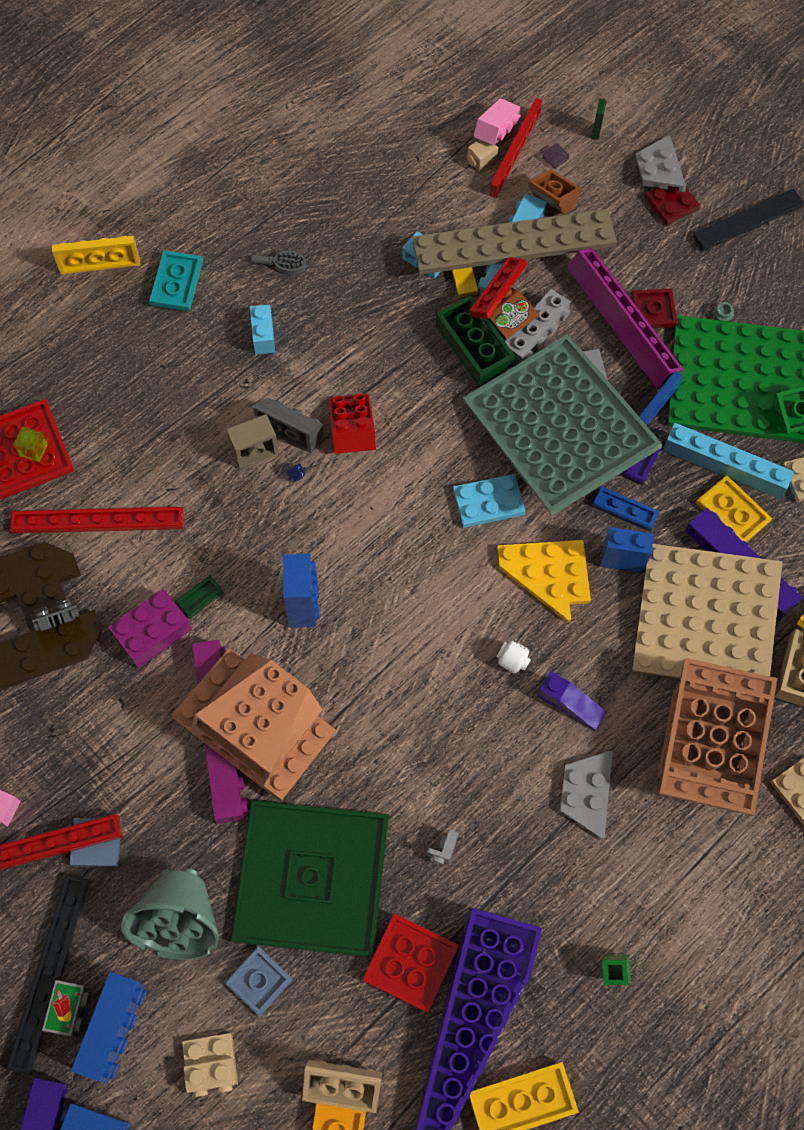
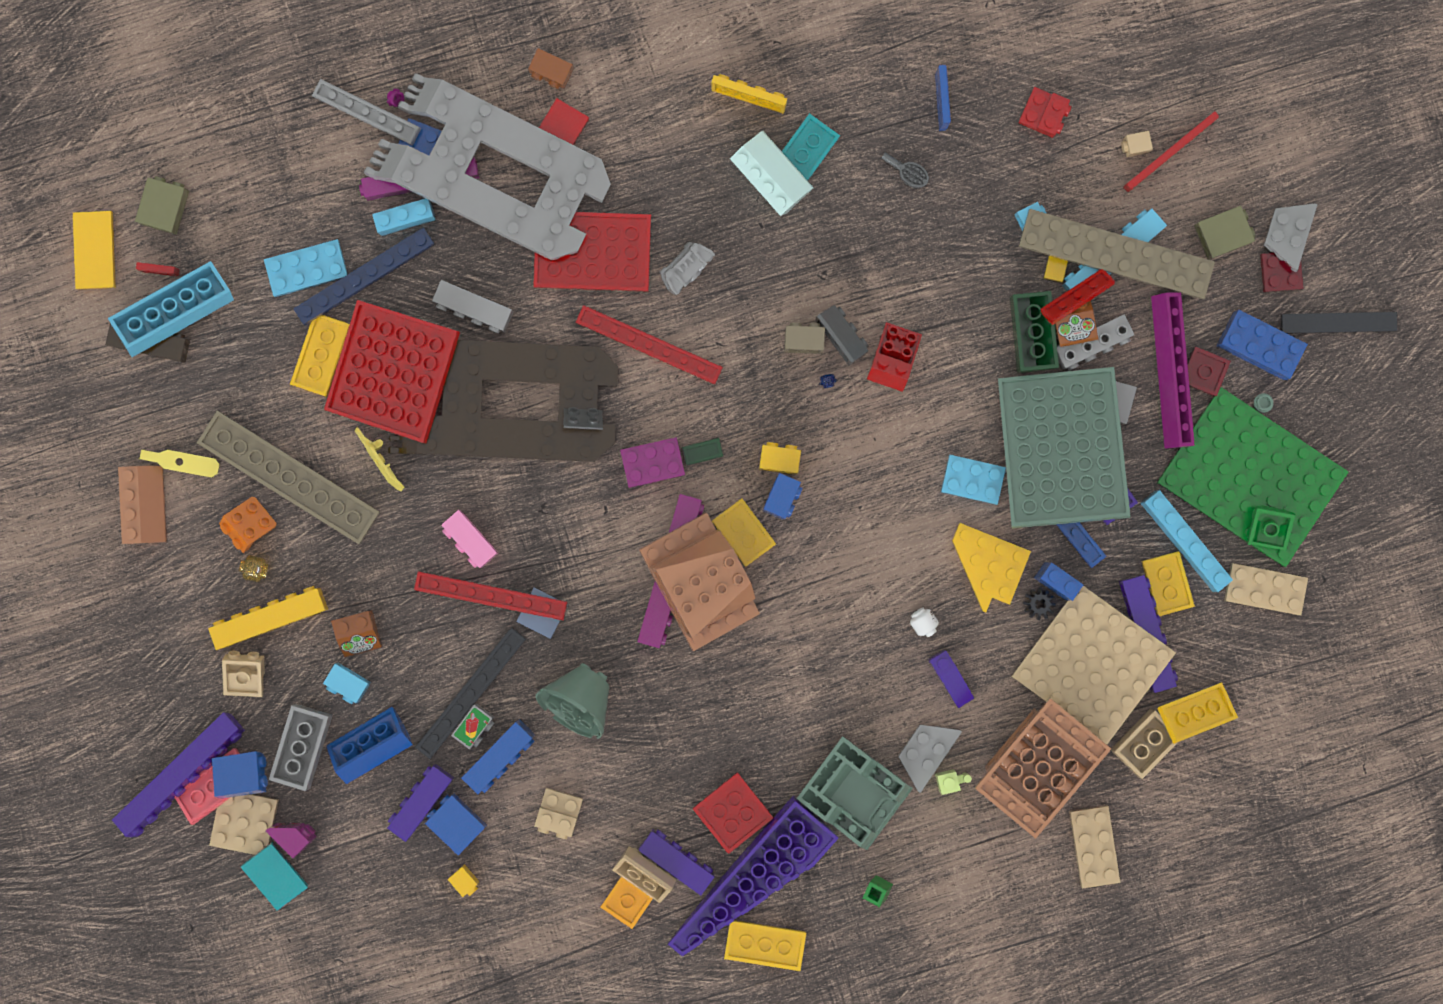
camera: 25 degrees right, 20 degrees up
(30, 444) = (622, 257): clear neon green brick -> none
(102, 427) = (686, 267): none -> light grey piece
(150, 312) = (771, 173): none -> light aqua slope
(258, 981) = (618, 772): sand blue tile -> none
(262, 329) = (860, 233): medium azure brick -> none
(271, 560) = (780, 459): none -> yellow brick
(283, 185) = (942, 97): none -> blue tile
(283, 650) = (744, 532): none -> yellow tile
(310, 879) = (689, 715): dark green tile -> none
(372, 1052) = (676, 861): none -> dark purple brick
(385, 164) = (1045, 112): none -> red plate
(447, 845) = (801, 742): light grey bracket -> none
(497, 121) = (1166, 122): bright pink brick -> none
(534, 871) = (854, 793): none -> sand green slope
(555, 155) = (1203, 175): clear purple tile -> none
(556, 190) = (1180, 218): dark orange slope -> none
(598, 119) = (1259, 161): dark green tile -> none
(604, 188) = (1225, 232): none -> olive brick
(611, 587) = (1040, 610): none -> black gear
(629, 808) = (949, 781): none -> yellowish green brick
(661, 398) = (1159, 461): blue tile -> none
(692, 263) = (1261, 345): none -> blue brick

